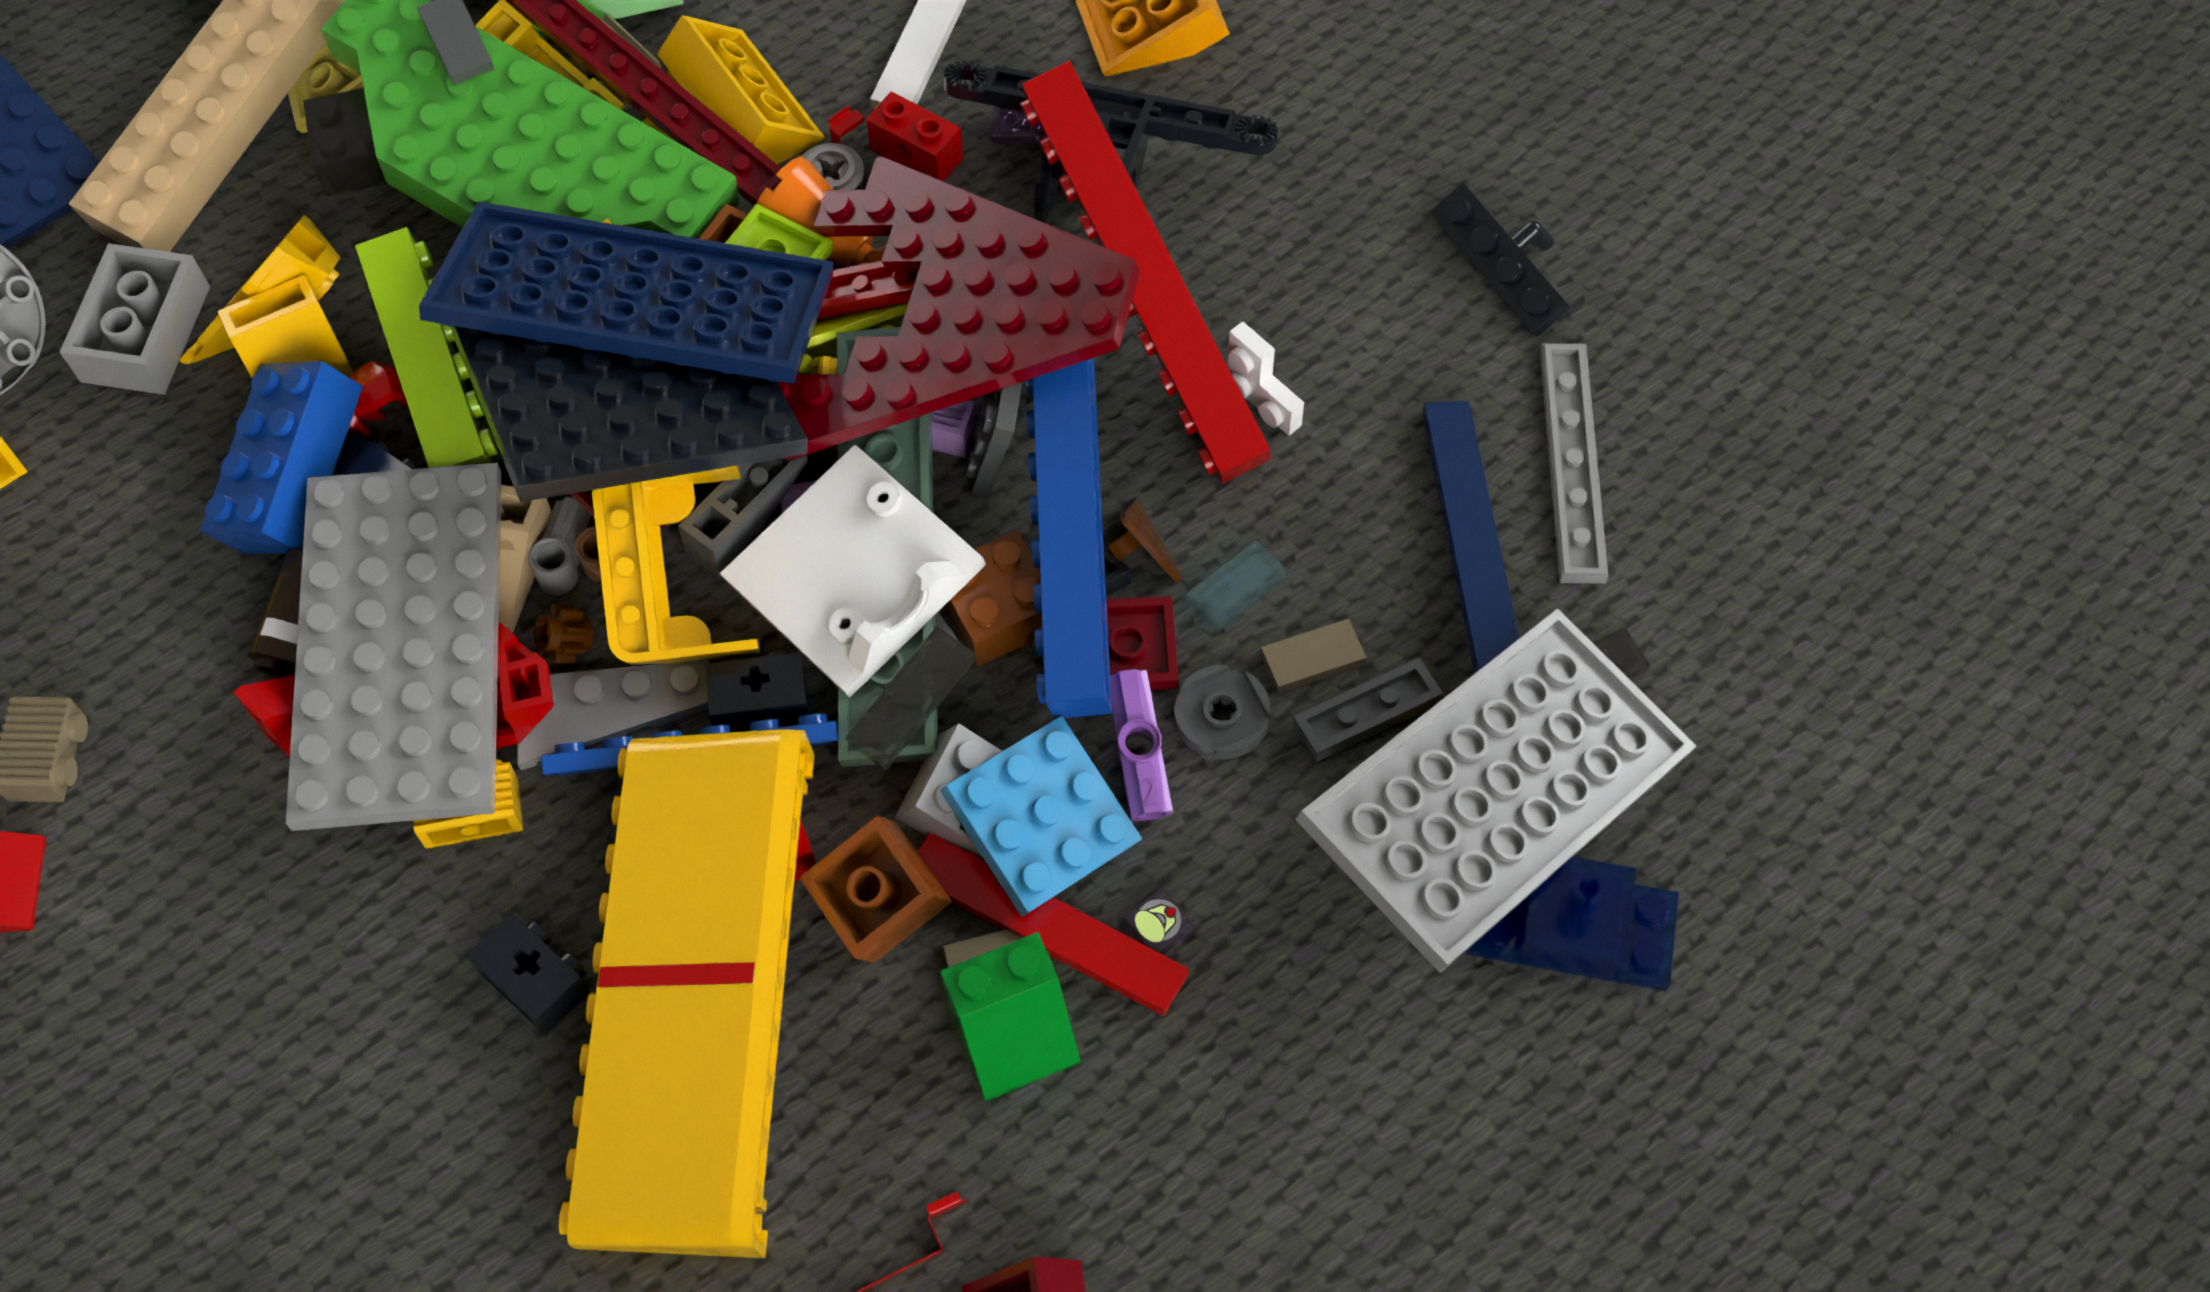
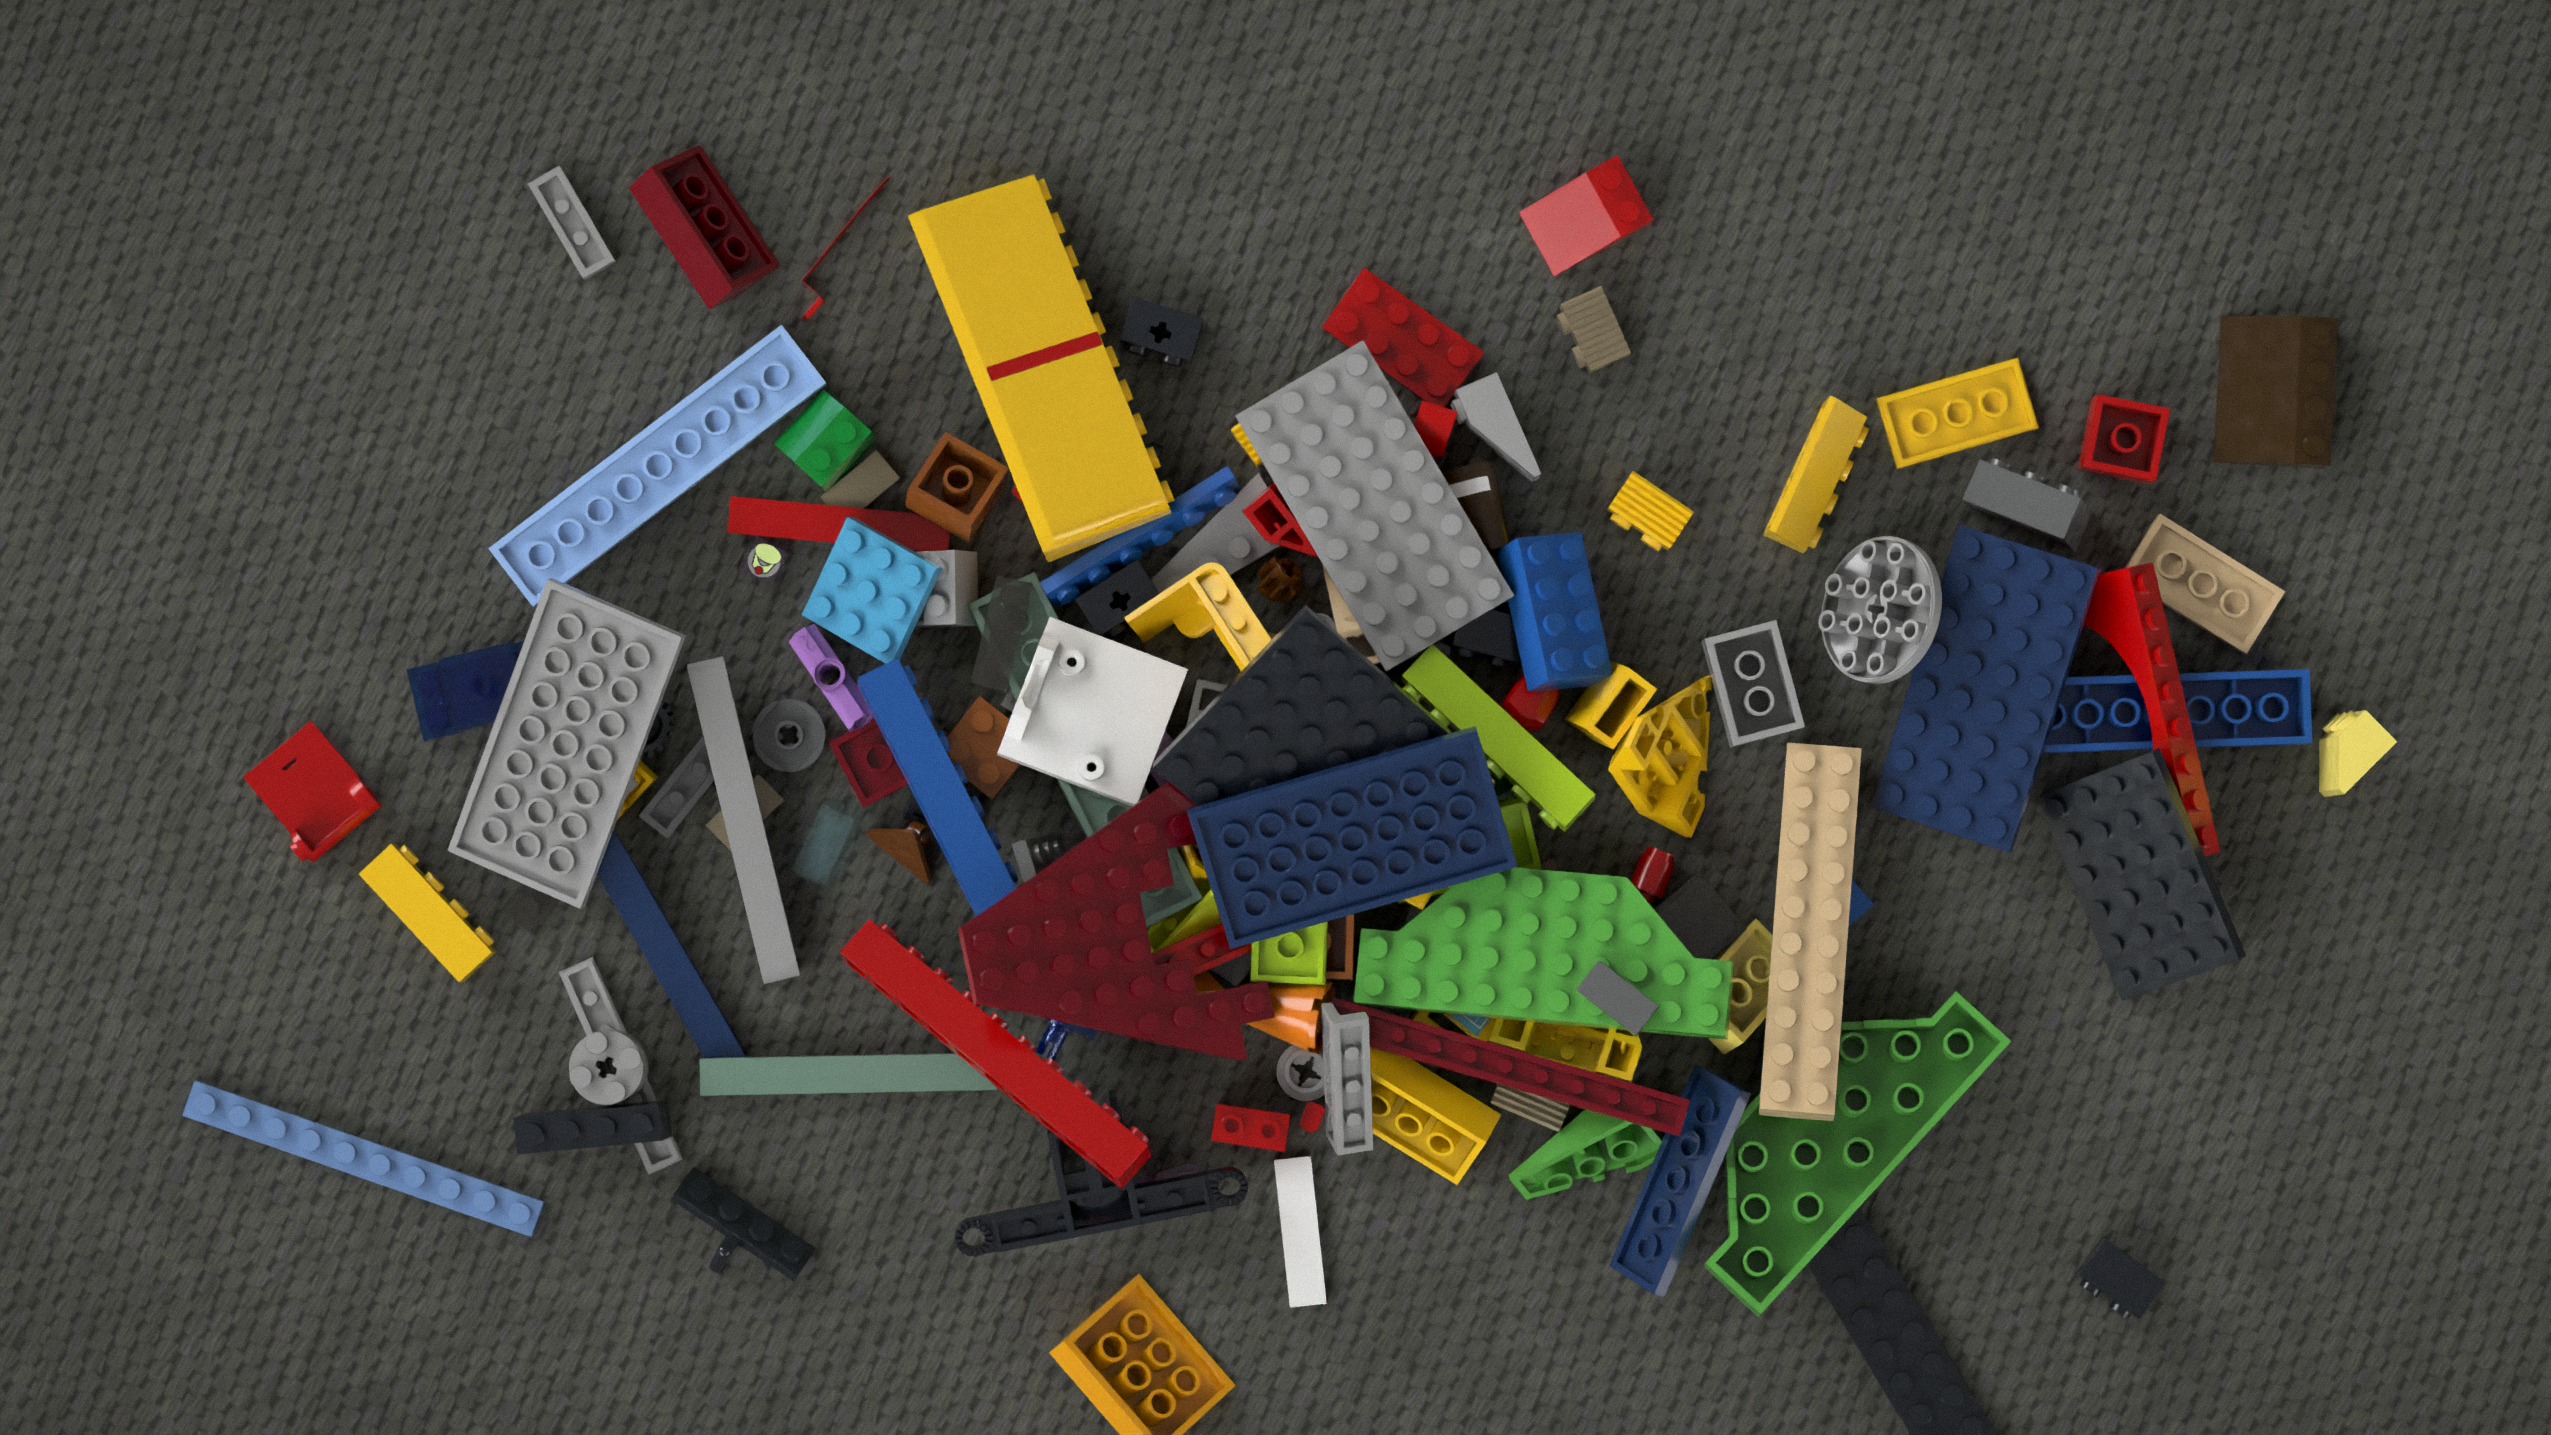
camera: 150 degrees right, 25 degrees up
(119, 533) = (1649, 511): none -> yellow brick
(201, 683) = (1493, 421): none -> light grey slope
(266, 869) = (1403, 339): none -> red plate
(367, 201) = (1653, 873): none -> red brick
(786, 109) = (1347, 1080): none -> light grey fence
(1238, 1094) = (658, 465): none -> light blue plate
(1252, 369) = (886, 1018): white plate -> none
(1316, 642) = (743, 820): none -> light grey beam
(1350, 356) = (838, 1074): none -> sand green tile
(1590, 443) = (589, 1076): none -> light grey brick
(1633, 397) = (592, 1127): none -> black brick
(1745, 698) = (428, 912): none -> yellow brick
(1841, 888) = (316, 795): none -> red door
(1919, 489) = (363, 1158): none -> medium blue plate

